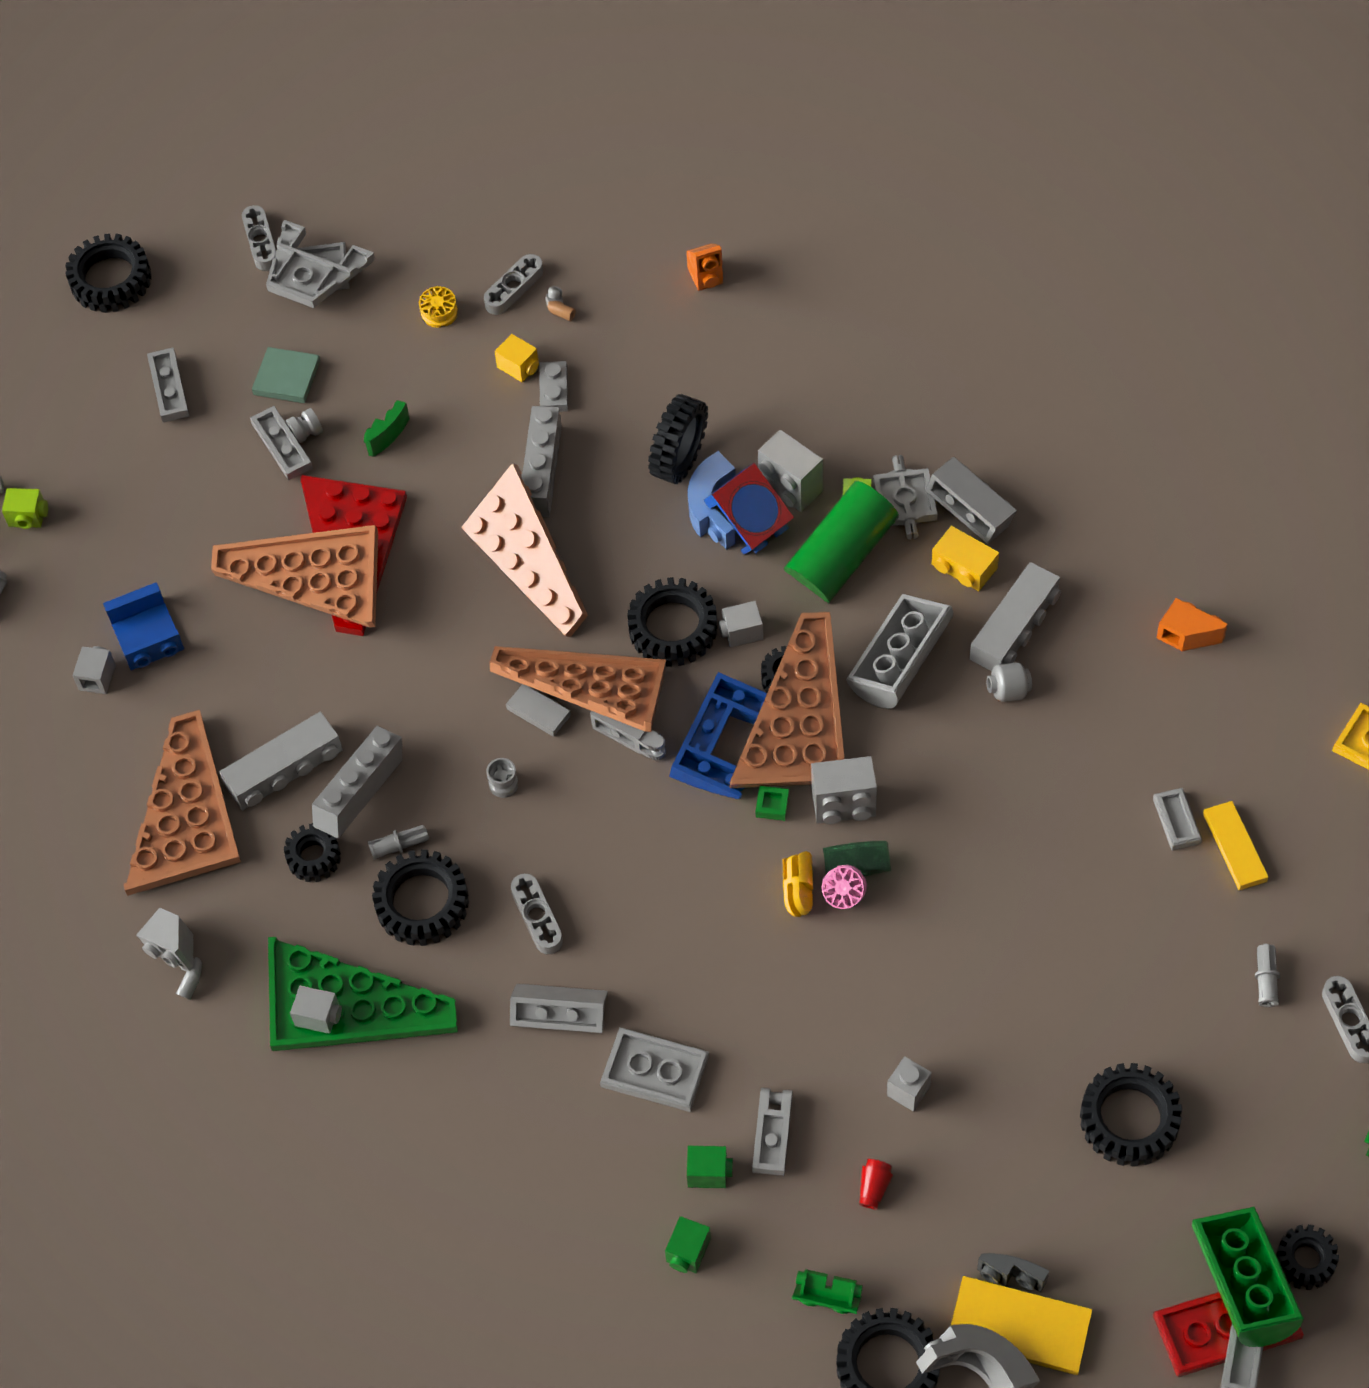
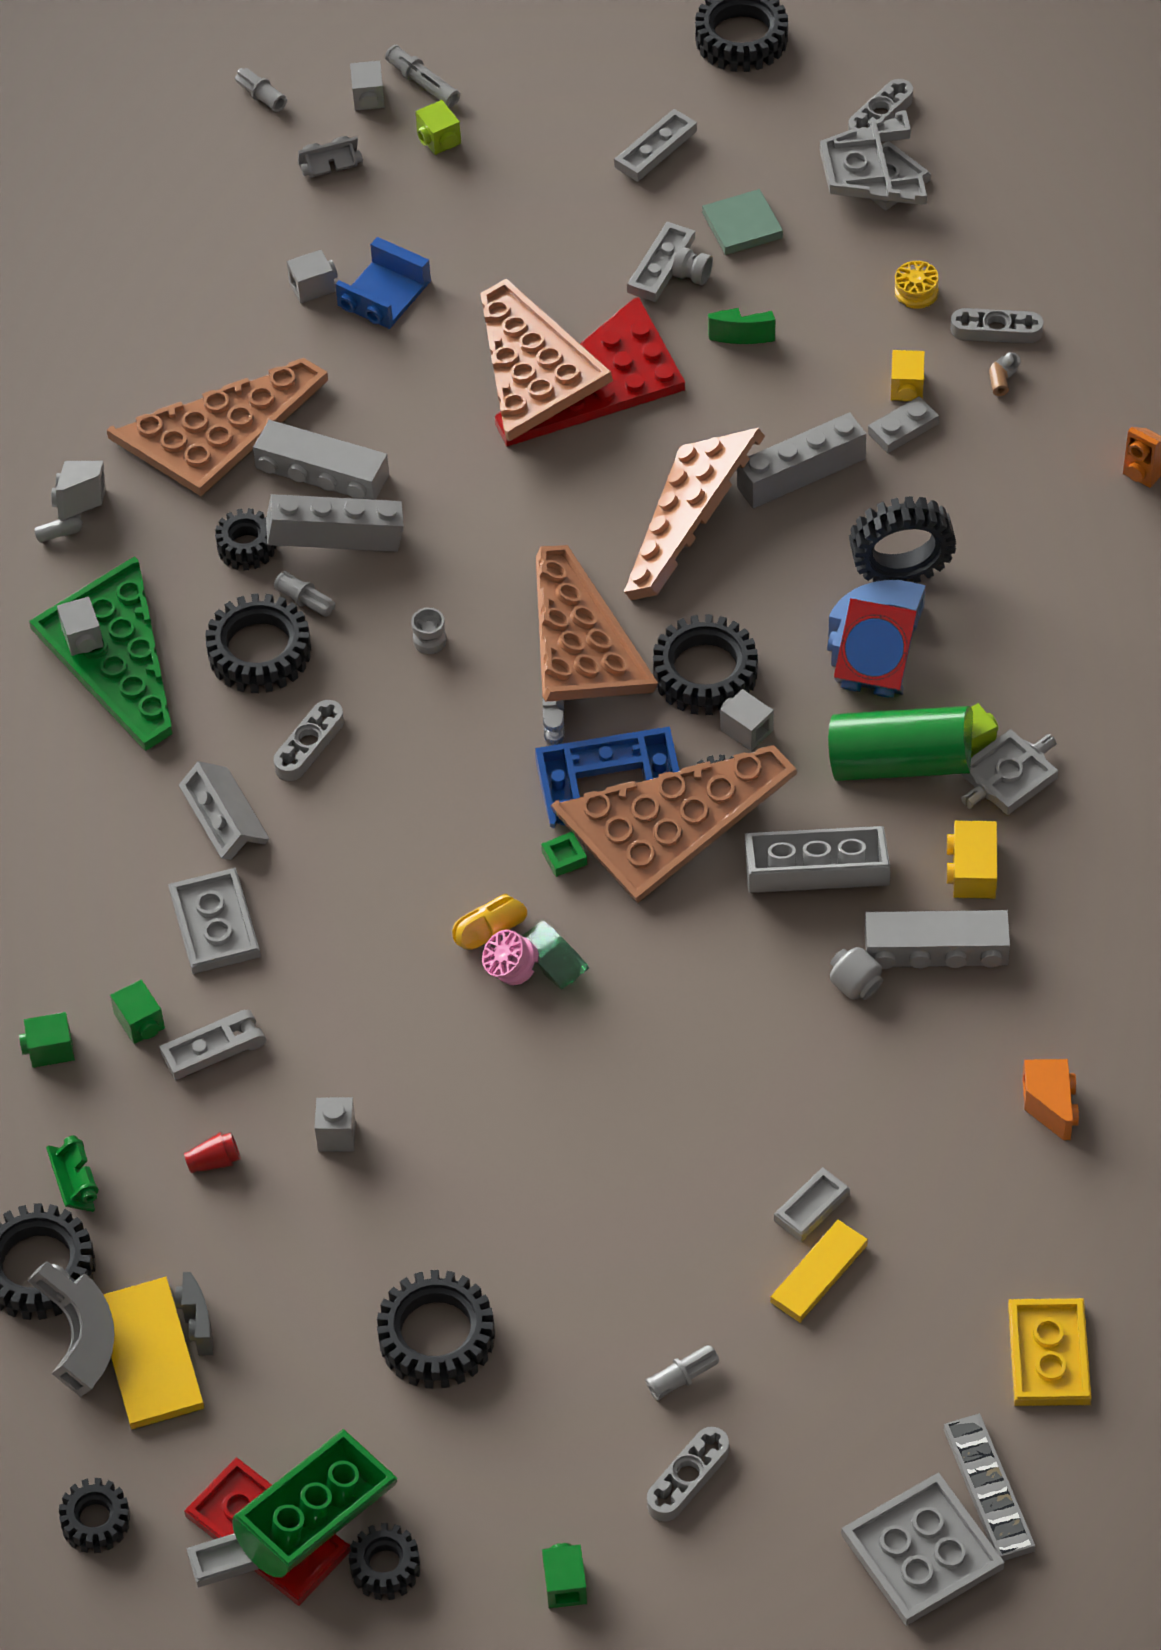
camera: 55 degrees right, 5 degrees down
(538, 710) = (524, 620): light grey tile -> none
(791, 470) = (948, 655): light grey brick -> none
(843, 790) = (612, 896): light grey brick -> none
(970, 500) = (1046, 824): light grey brick -> none

